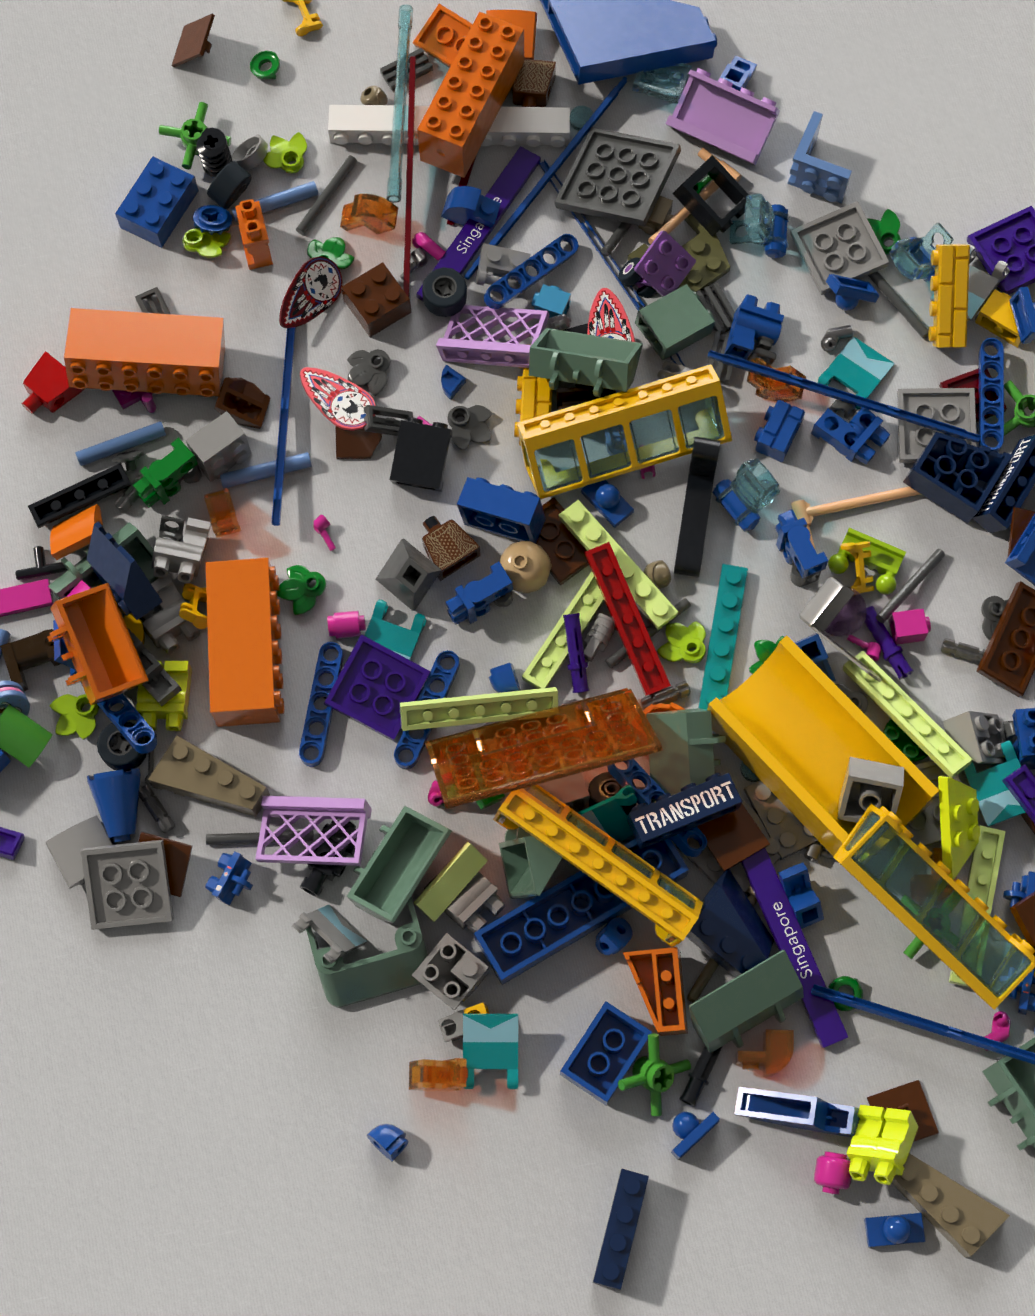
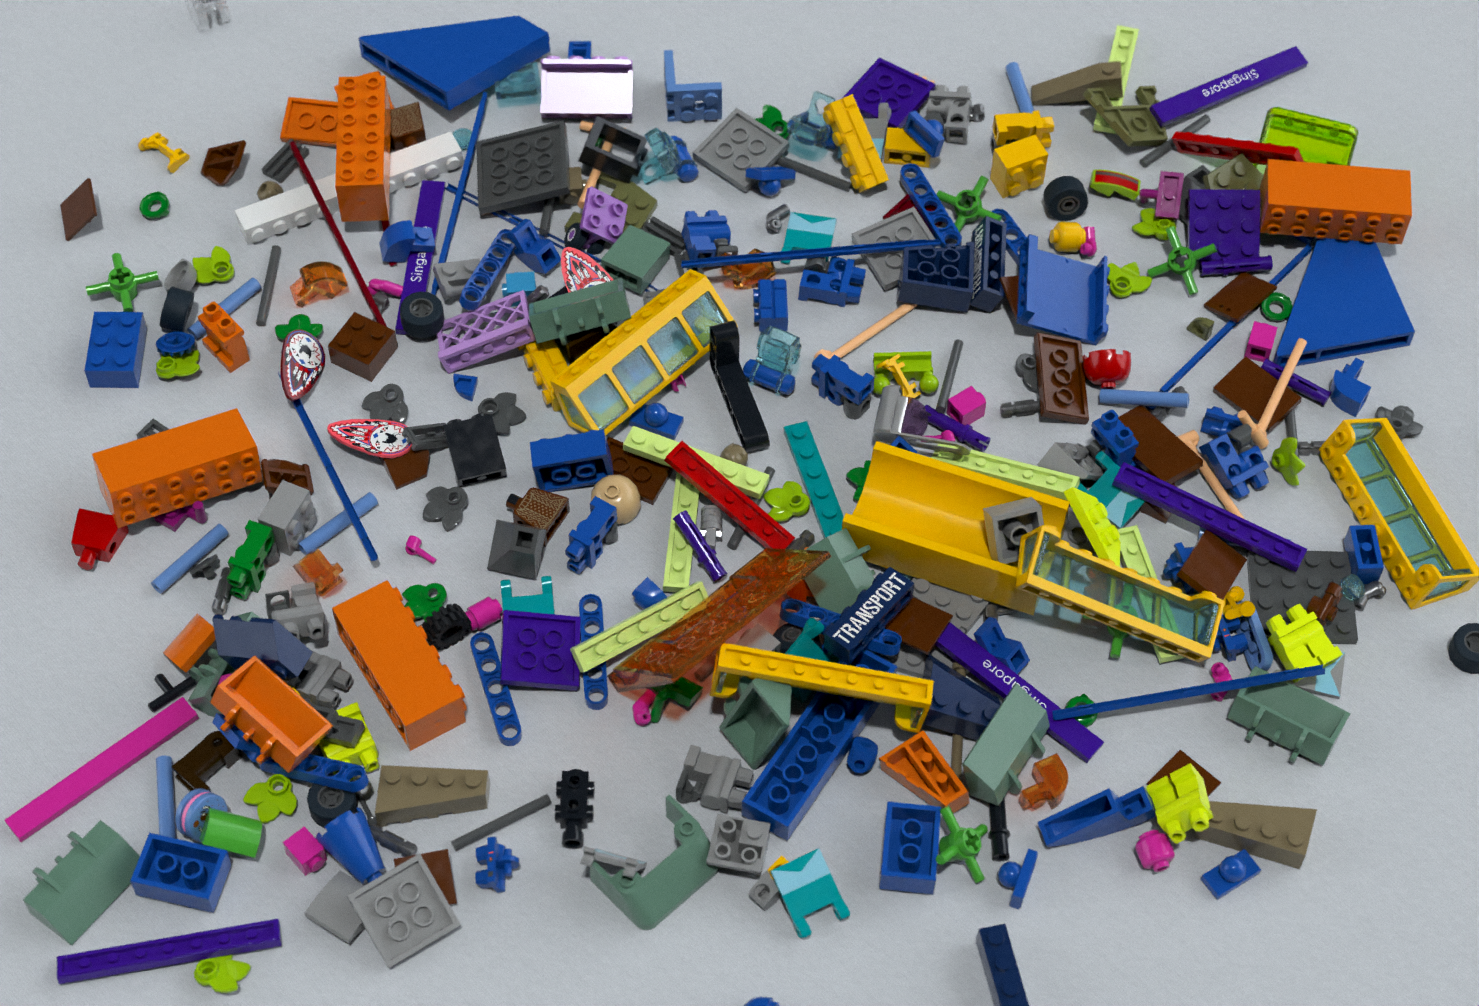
camera: 30 degrees left, 15 degrees down
(74, 782) = (305, 851): none -> dark pink brick
(79, 495) = (175, 615): black slope -> none
(189, 611) = (335, 656): yellow piece -> none
(213, 151) = (149, 287): black piece -> none
(304, 624) = (446, 626): none -> black tyre
(318, 809) = (542, 771): lavender fence -> none
(347, 46) = (223, 162): none -> reddish brown slope
(366, 498) = (443, 508): none -> dark grey plate
(394, 182) = (328, 243): clear light blue piece -> none
(397, 865) = (643, 778): sand green piece -> none
(438, 1075) = (777, 936): clear orange brick -> none
(450, 881) = (697, 771): yellowish green tile -> none
(583, 267) = (532, 251): none -> blue brick

